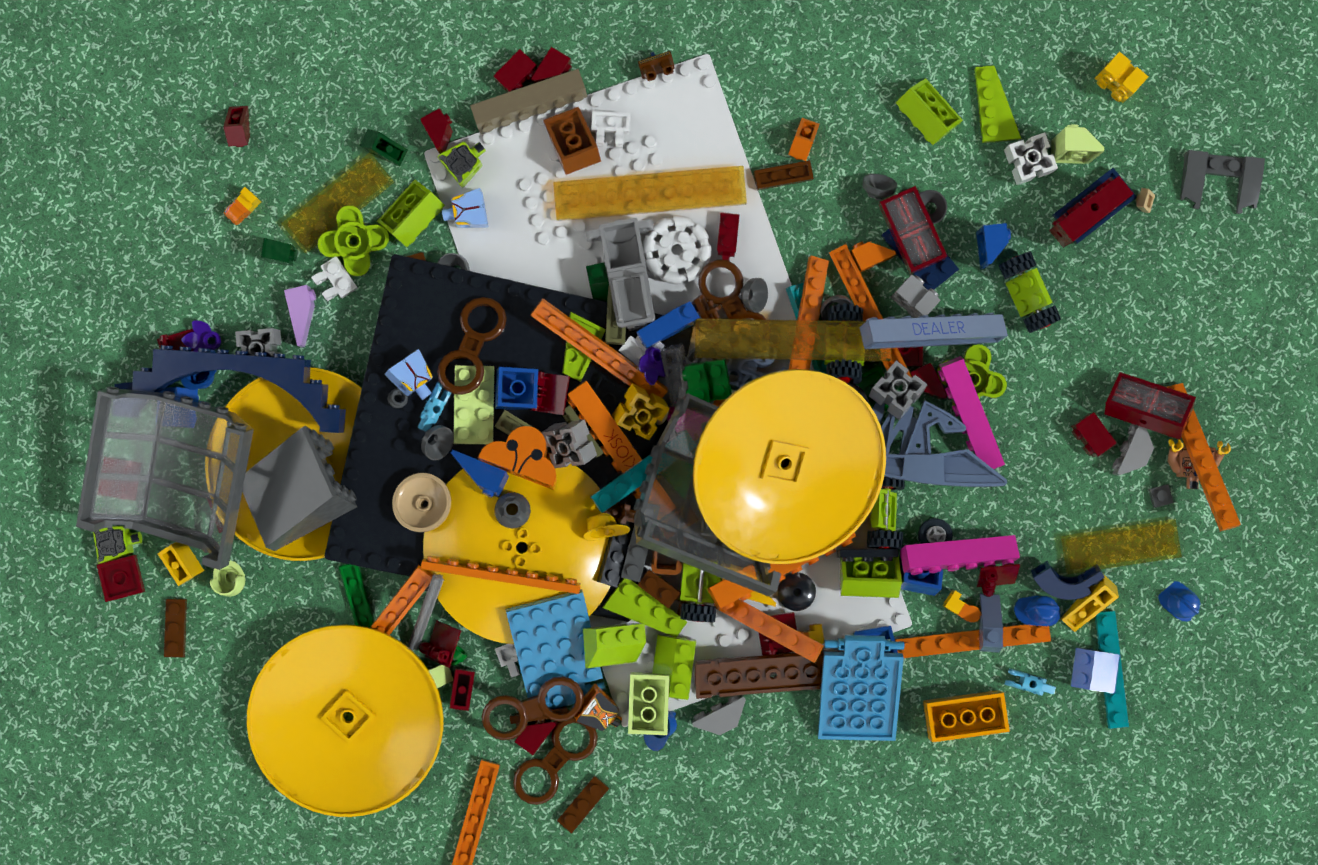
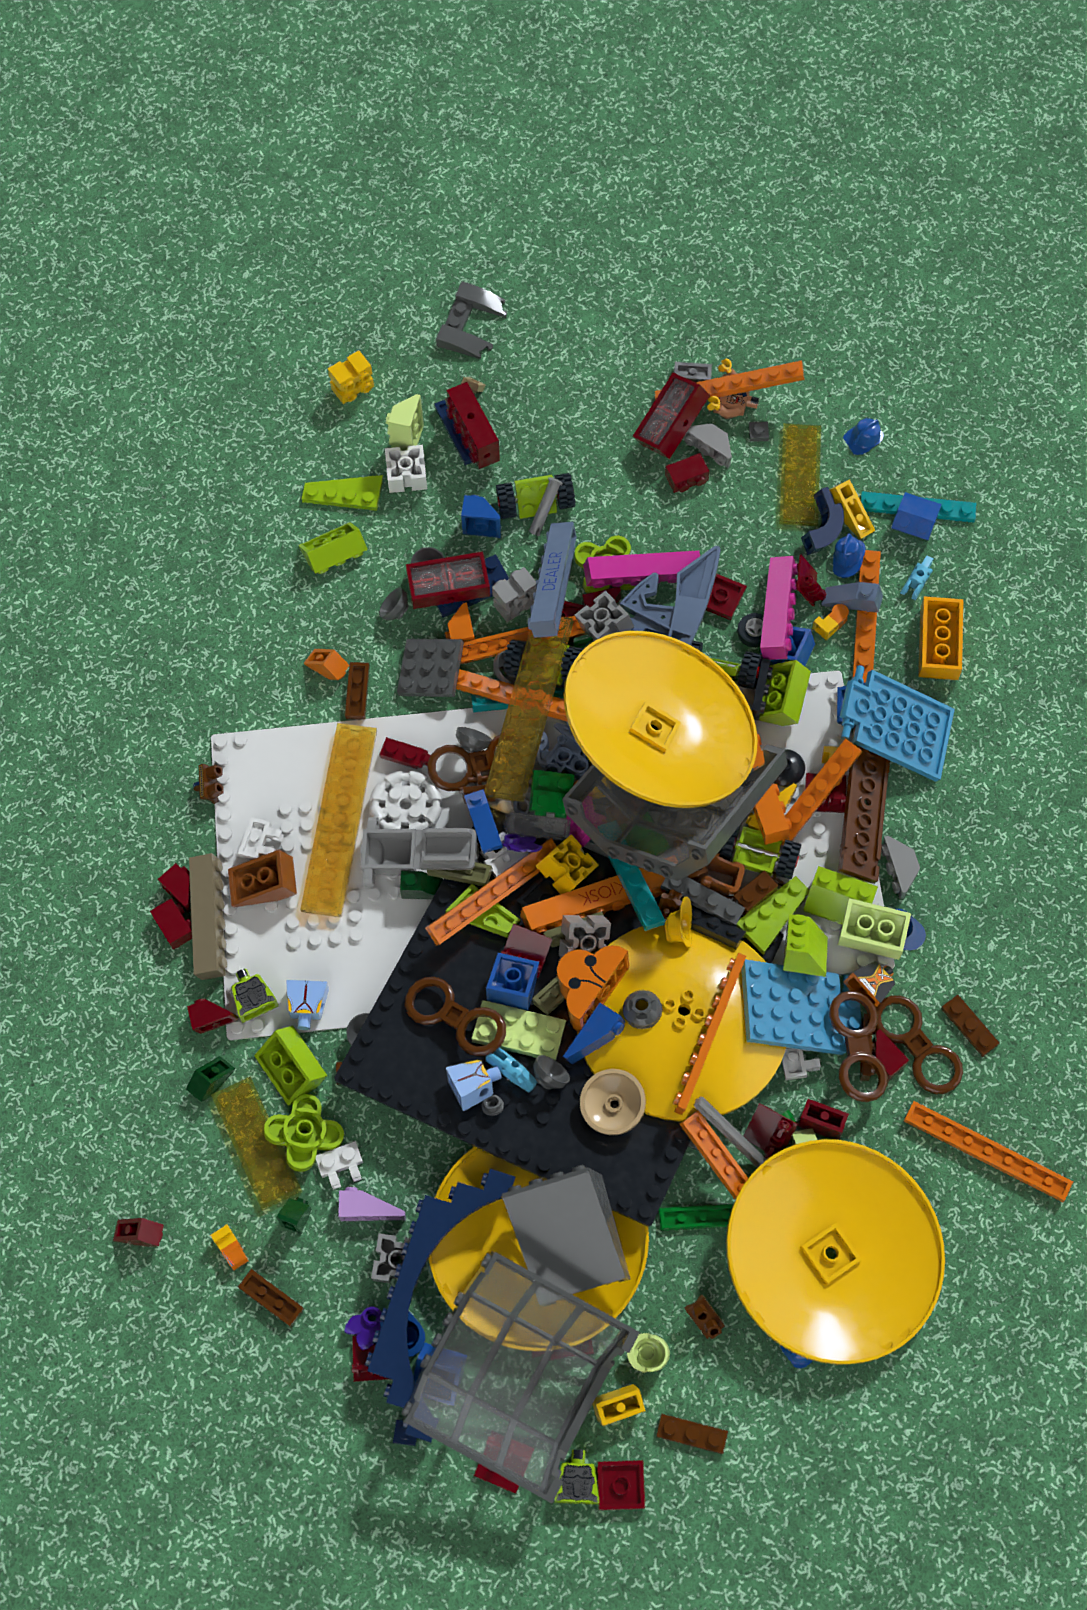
camera: 75 degrees left, 20 degrees down
(208, 252) = (271, 1298): none -> reddish brown plate
(268, 620) = (705, 1317): none -> reddish brown hips
(821, 237) = (430, 667): none -> dark grey plate
(964, 500) = (725, 597): none -> dark red plate
(1019, 304) = (545, 506): none -> light grey pin
(1213, 416) = (693, 371): none -> flat silver plate

